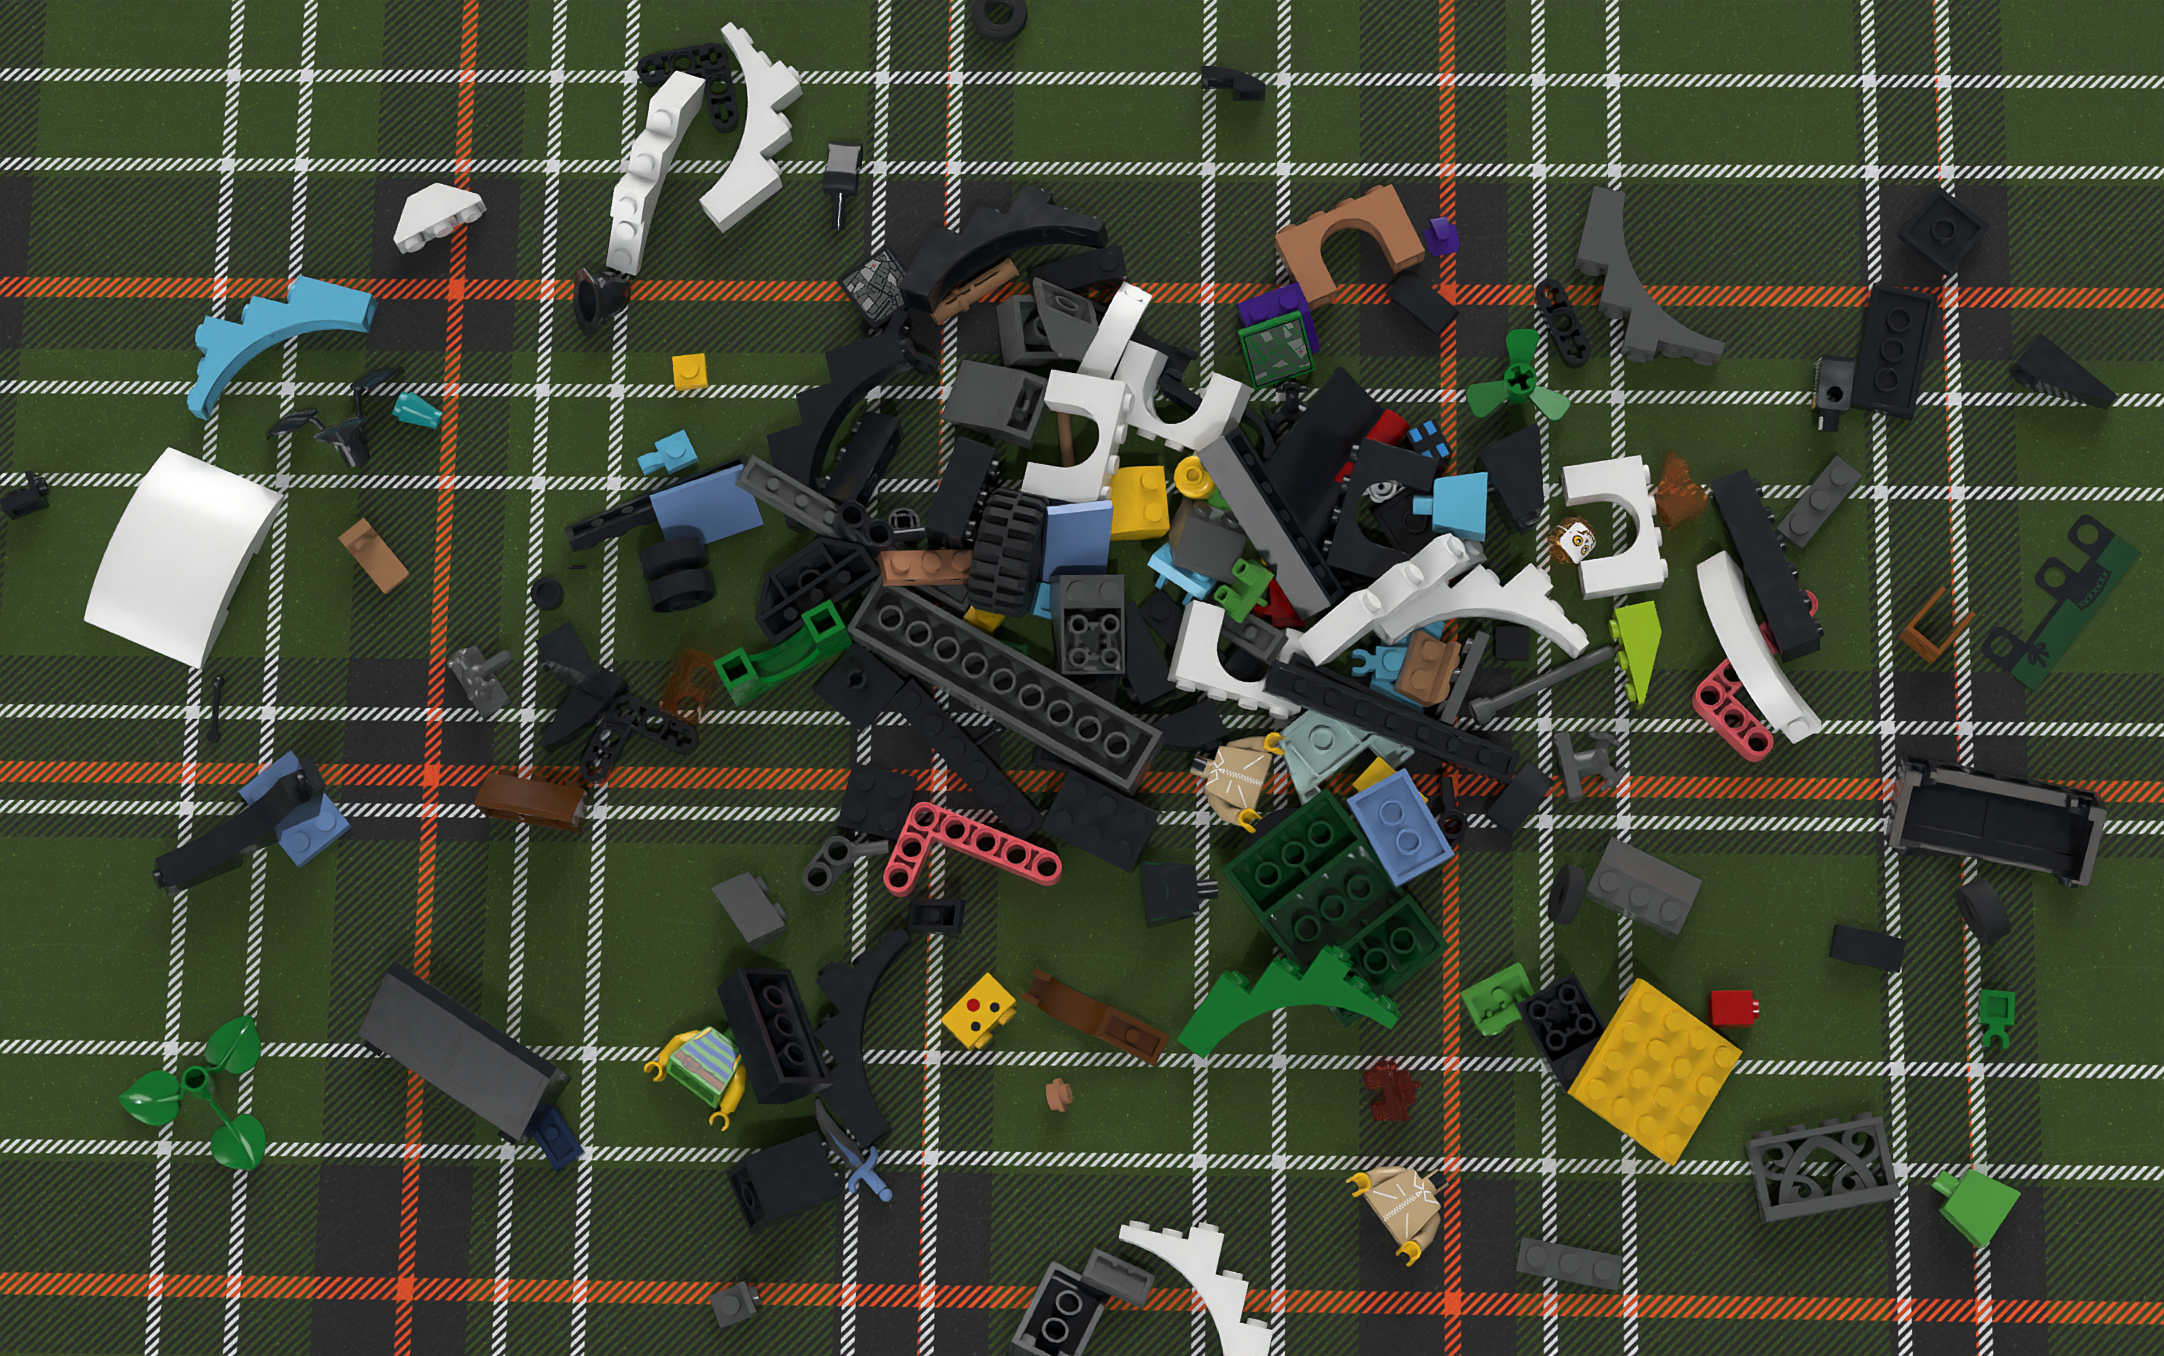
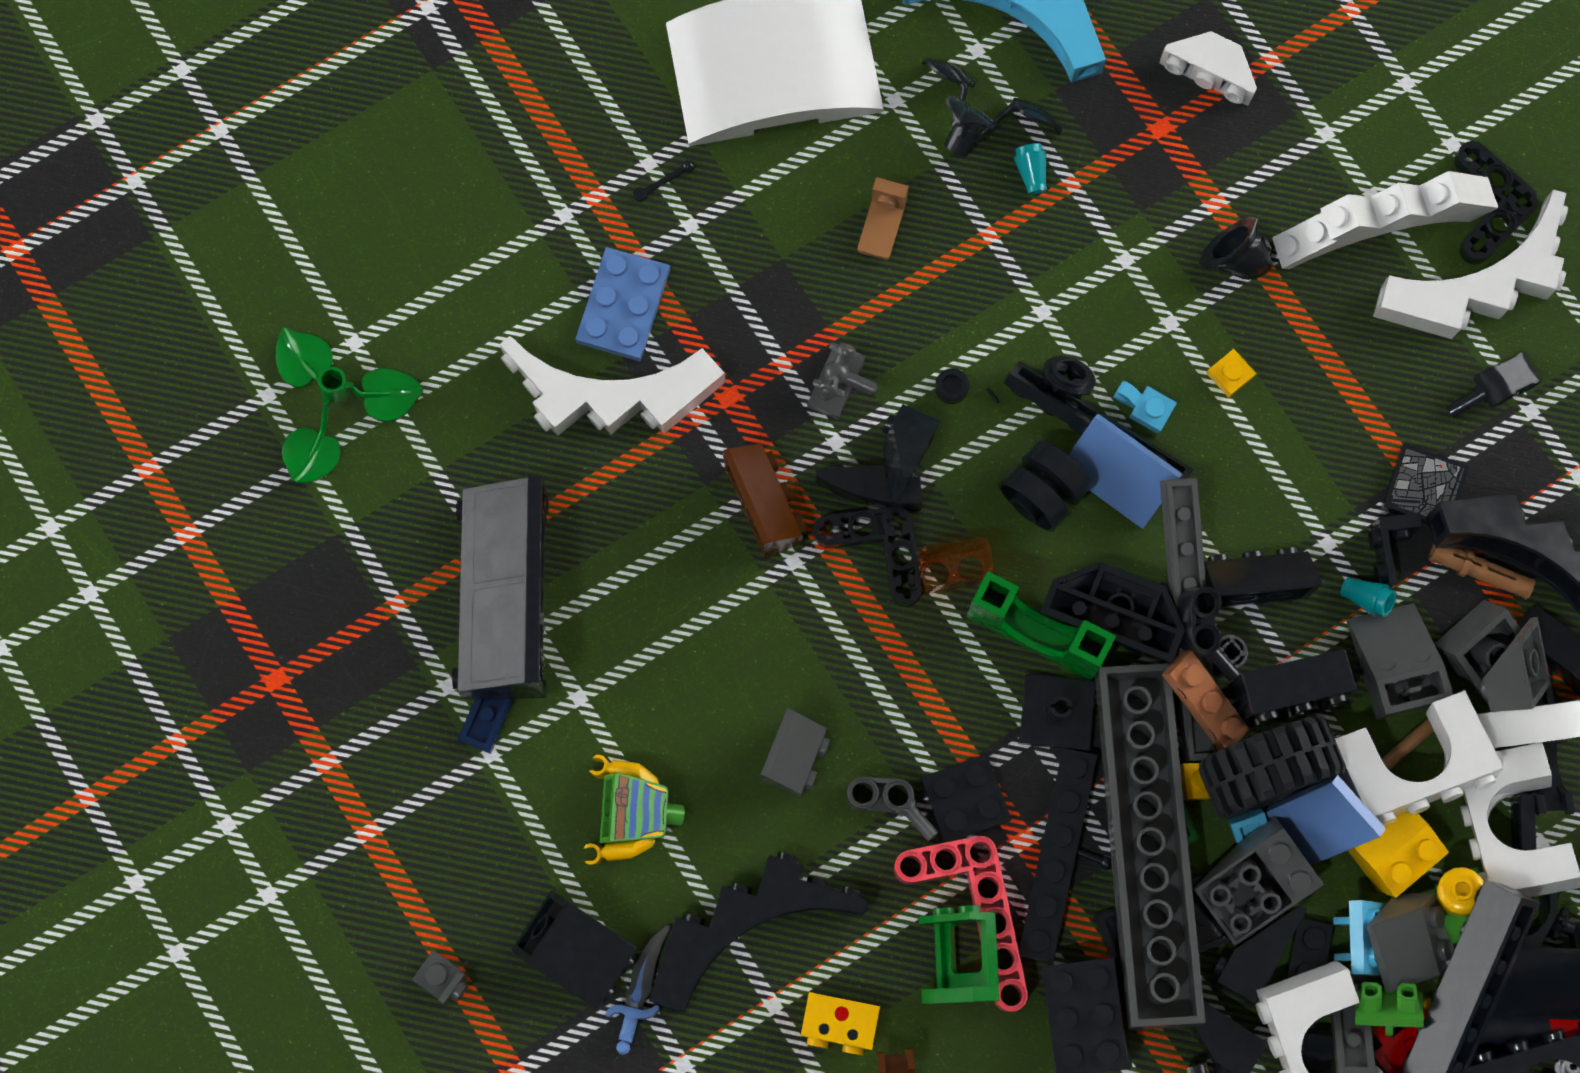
camera: 50 degrees right, 0 degrees up
(286, 804) = (587, 284): black arch -> none
(370, 872) = (611, 403): none -> white arch
(612, 489) = (1080, 376): none -> black gear
(773, 1034) = (696, 851): black slope -> none
(853, 374) = (1333, 516): black arch -> none
(935, 388) = (1370, 596): none -> teal cone
(936, 917) = (899, 924): black slope -> none
(1019, 896) = (956, 986): none -> green window

